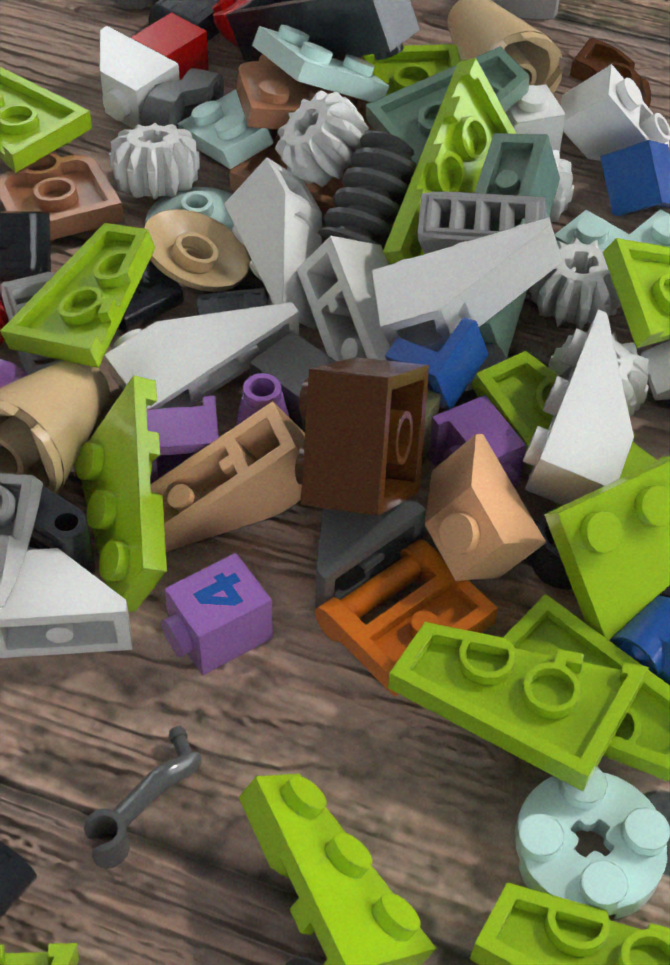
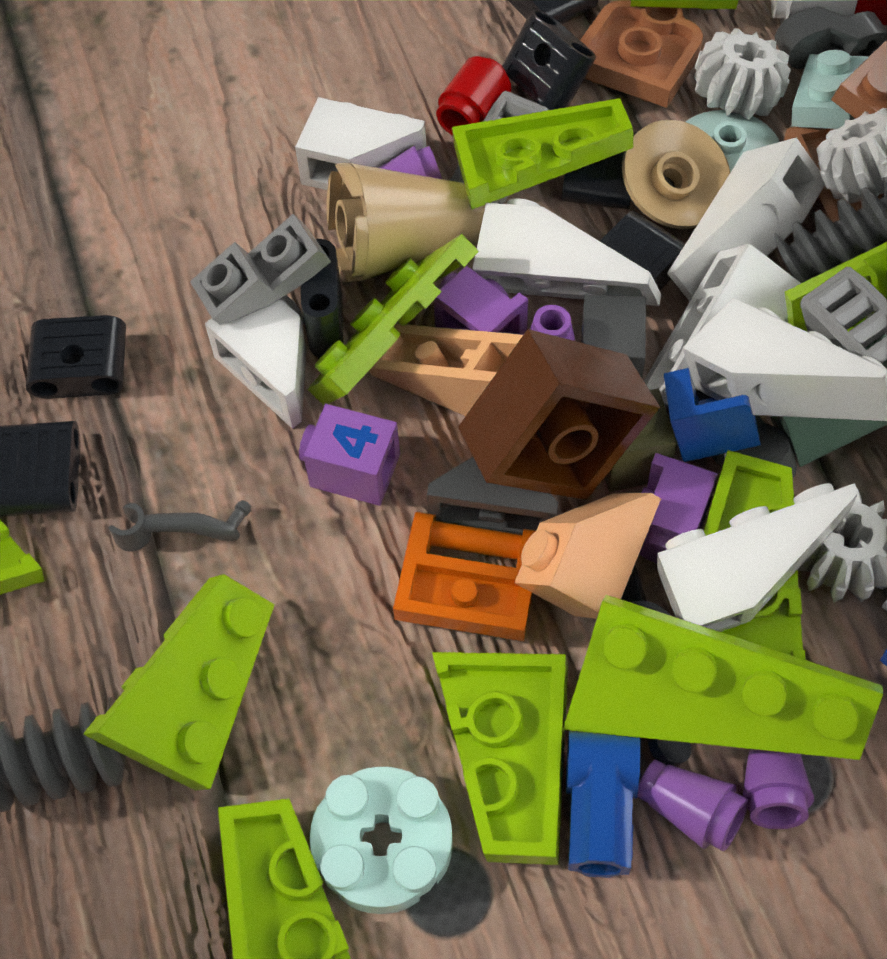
camera: 55 degrees right, 10 degrees up
(524, 701) = (446, 708): lime wing -> none

